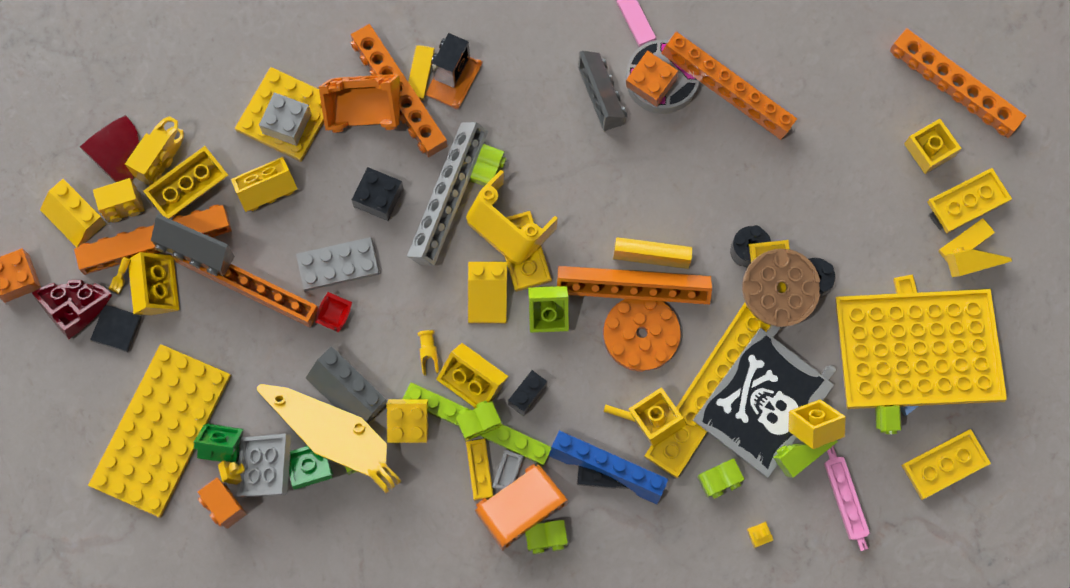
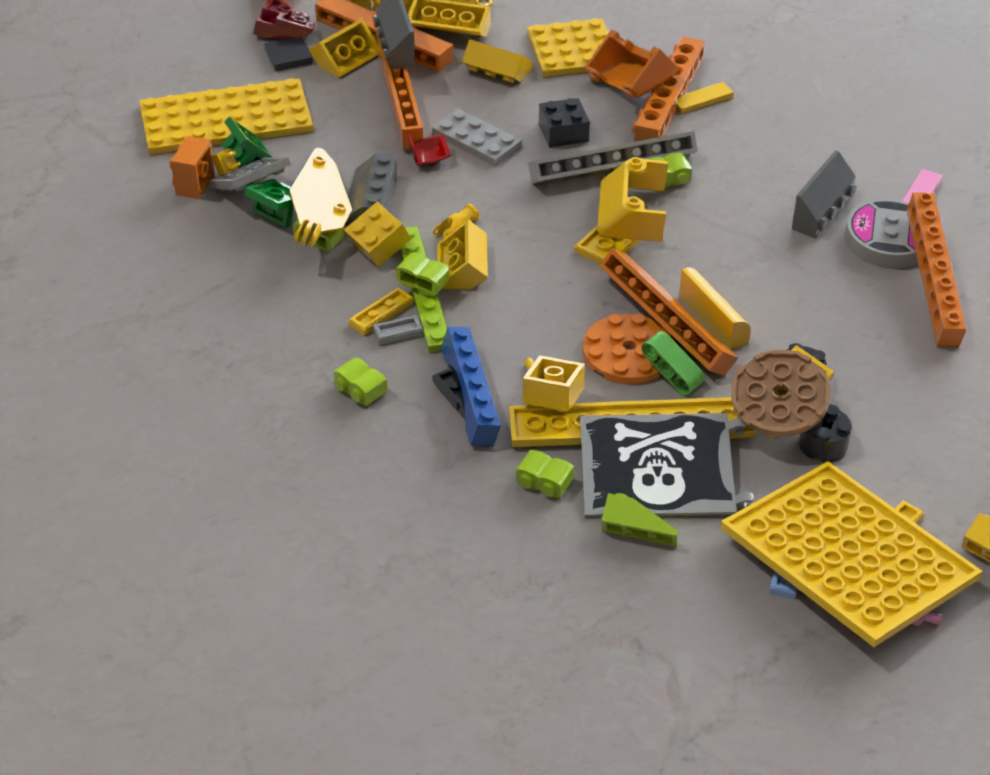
camera: 55 degrees right, 30 degrees down
(118, 281) = (331, 31): yellow piece -> none
(285, 119) = (564, 37): light grey brick -> none
(450, 60) = (731, 95): black brick -> none
(454, 96) = (722, 119): orange piece -> none
(487, 292) = (553, 228): yellow slope -> none
(520, 506) = (374, 343): windscreen -> none
(527, 393) = (485, 298): black brick -> none
(548, 309) = (577, 263): lime brick -> none
(652, 78) = (873, 211): orange brick -> none
(686, 322) = (673, 363): none -> bright green beam
(760, 534) = (518, 539): yellow tile -> none
(816, 424) = (674, 502): yellow brick -> none
(846, 498) = (626, 585): bright pink plate -> none
(888, 419) = (745, 559): lime brick -> none
(946, 464) = (753, 650): yellow plate -> none

